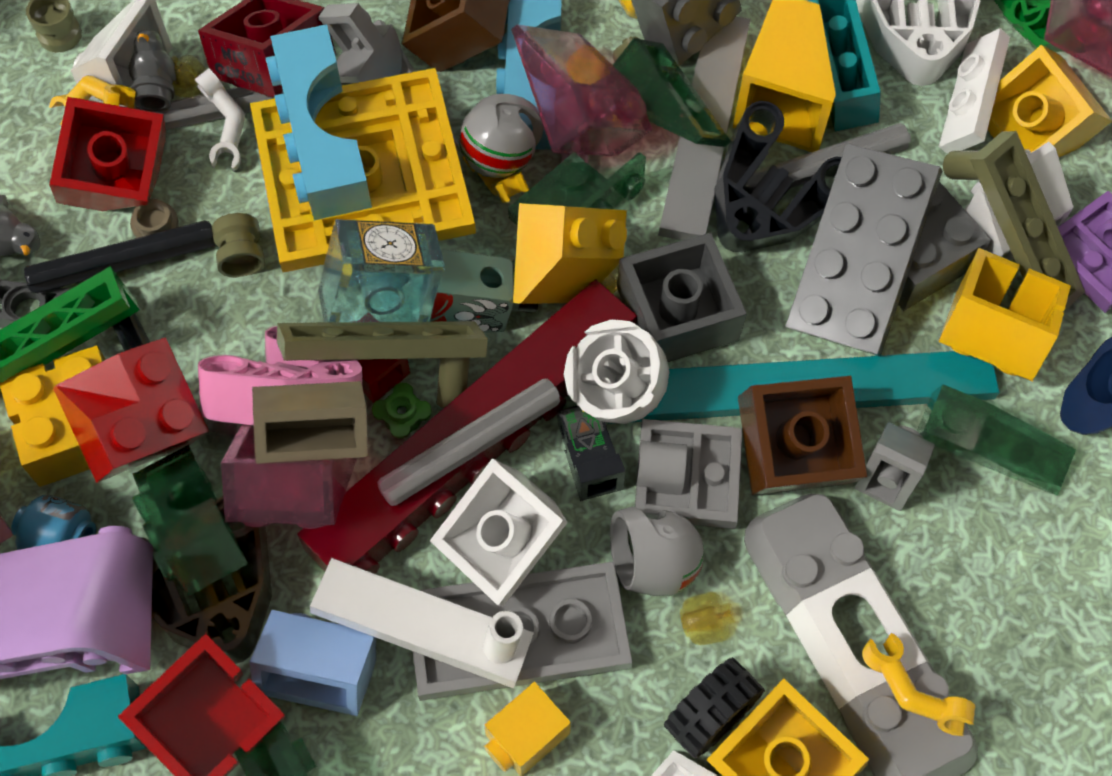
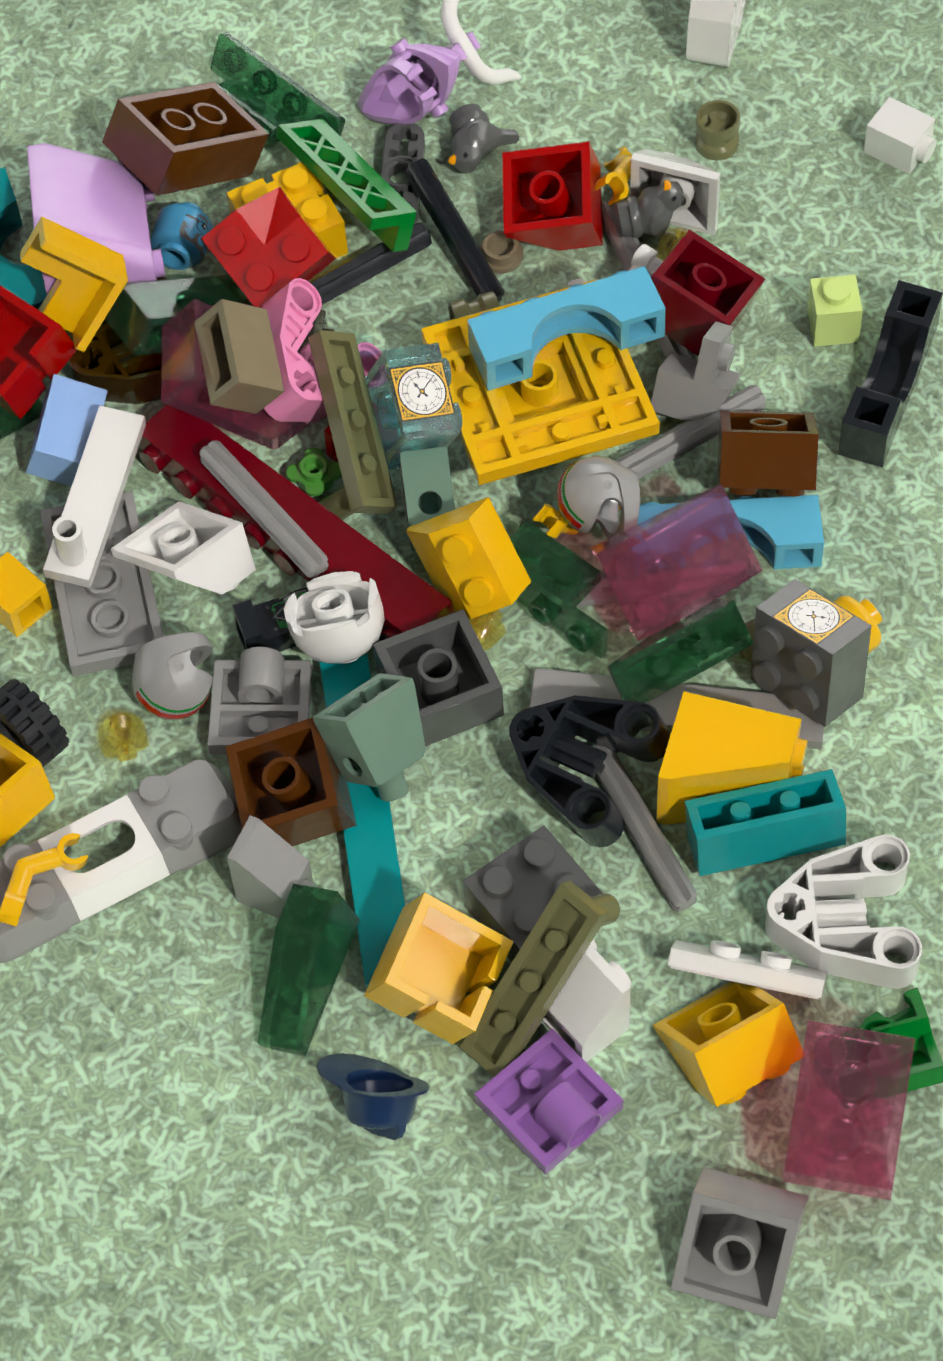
camera: 90 degrees right, 5 degrees down
(148, 605) = (85, 274): none -> yellow panel
(773, 348) = (375, 733): none -> sand green torso
(864, 248) = (500, 830): plate -> none

